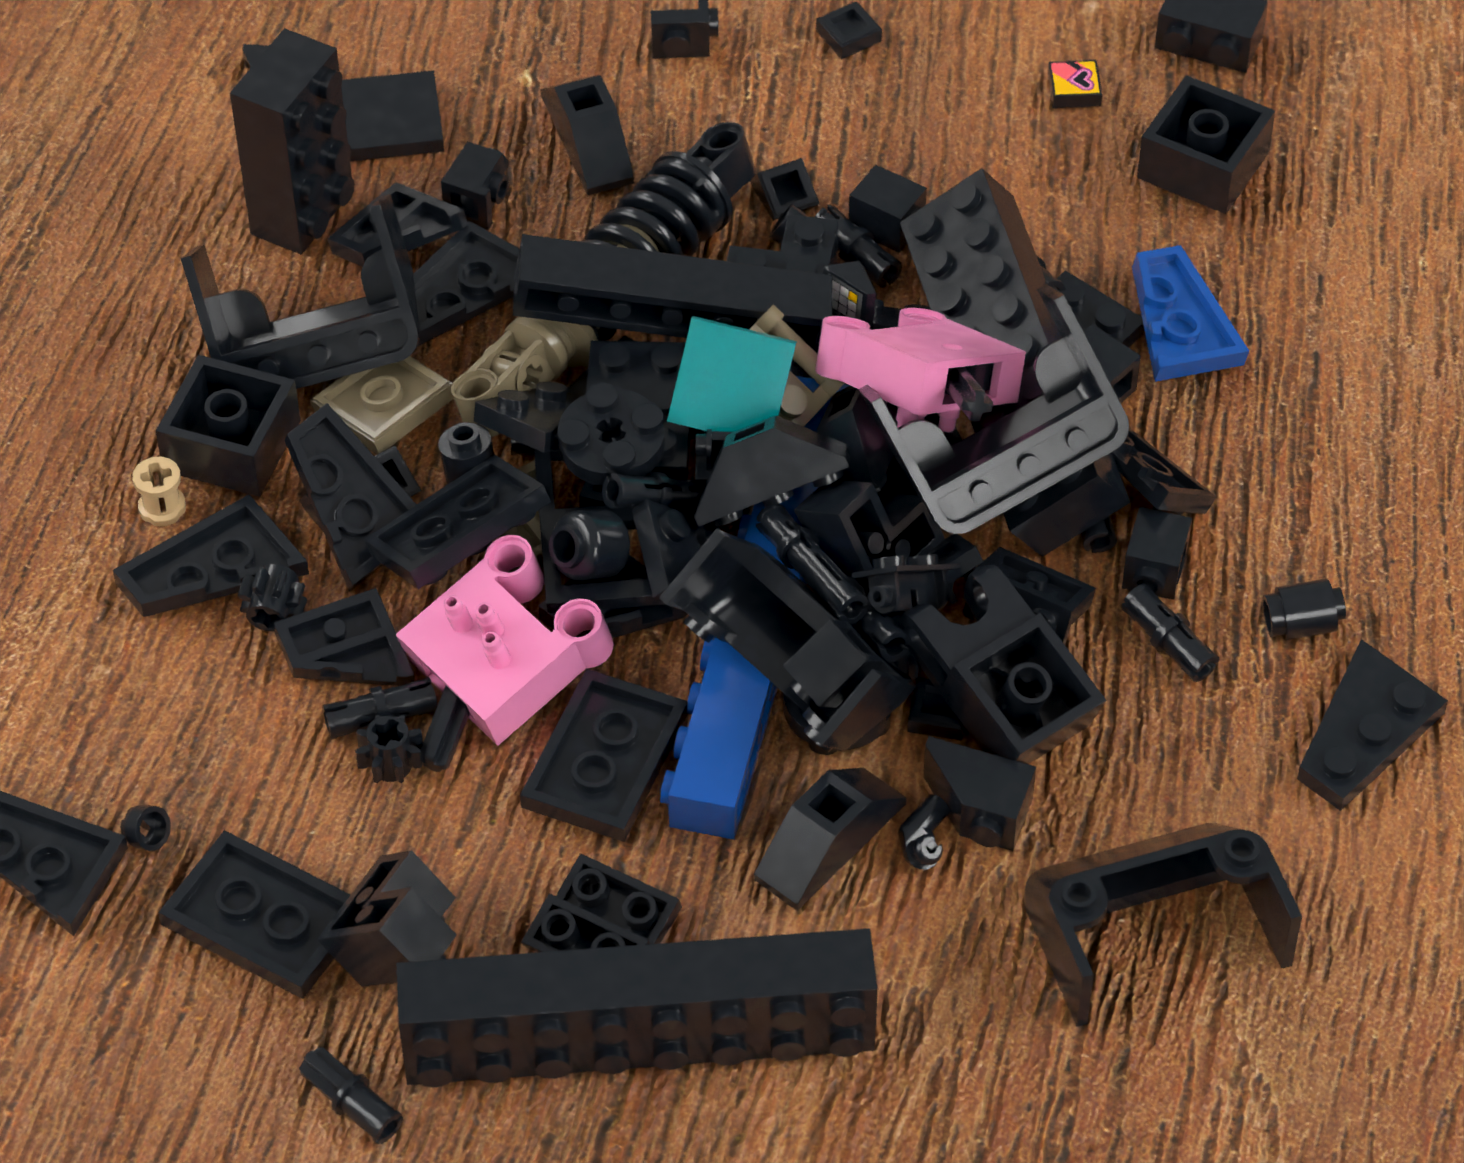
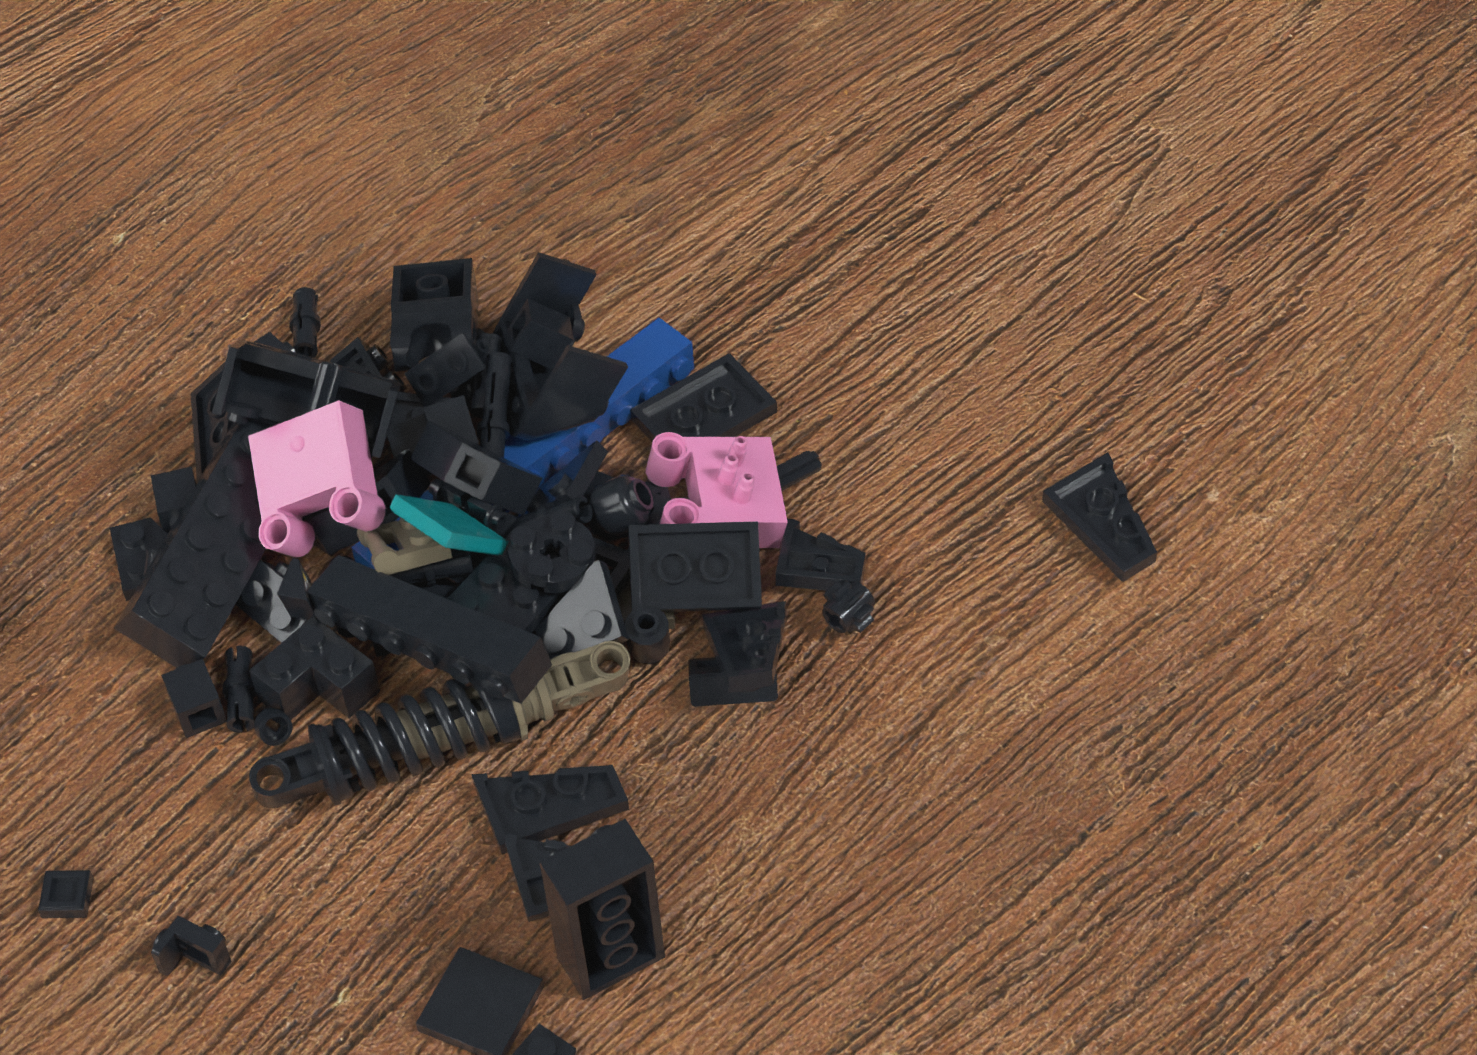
camera: 145 degrees left, 0 degrees up
(150, 818) = (1026, 504): black hinge -> none
(169, 479) = (872, 730): tan bush -> none
(207, 560) = (869, 668): black wing -> none
(229, 424) = (798, 745): black brick -> none
(256, 913) = (981, 413): black plate -> none
(322, 341) = (678, 794): black windscreen -> none
(351, 1095) = (990, 293): black axle -> none
(359, 712) = (825, 510): black pin -> none
(386, 401) = (668, 732): dark tan plate -> none
(389, 748) = (837, 472): black gear -> none
(390, 920) = (920, 345): black brick -> none
(476, 182) = (468, 882): black brick -> none
(590, 132) = (342, 892): black slope -> none
(601, 911) = (779, 322): black slope -> none
(637, 1007) = (802, 238): black brick -> none
(785, 186) = (234, 772): black slope -> none
(825, 832) = (621, 293): black slope -> none
(983, 790) = (499, 273): black slope -> none
(1083, 890) = (465, 194): black windscreen -> none
(1182, 318) = (86, 513): blue wing -> none
(1303, 609) = (216, 297): black brick -> none
(1367, 726) = (239, 229): black wing -> none

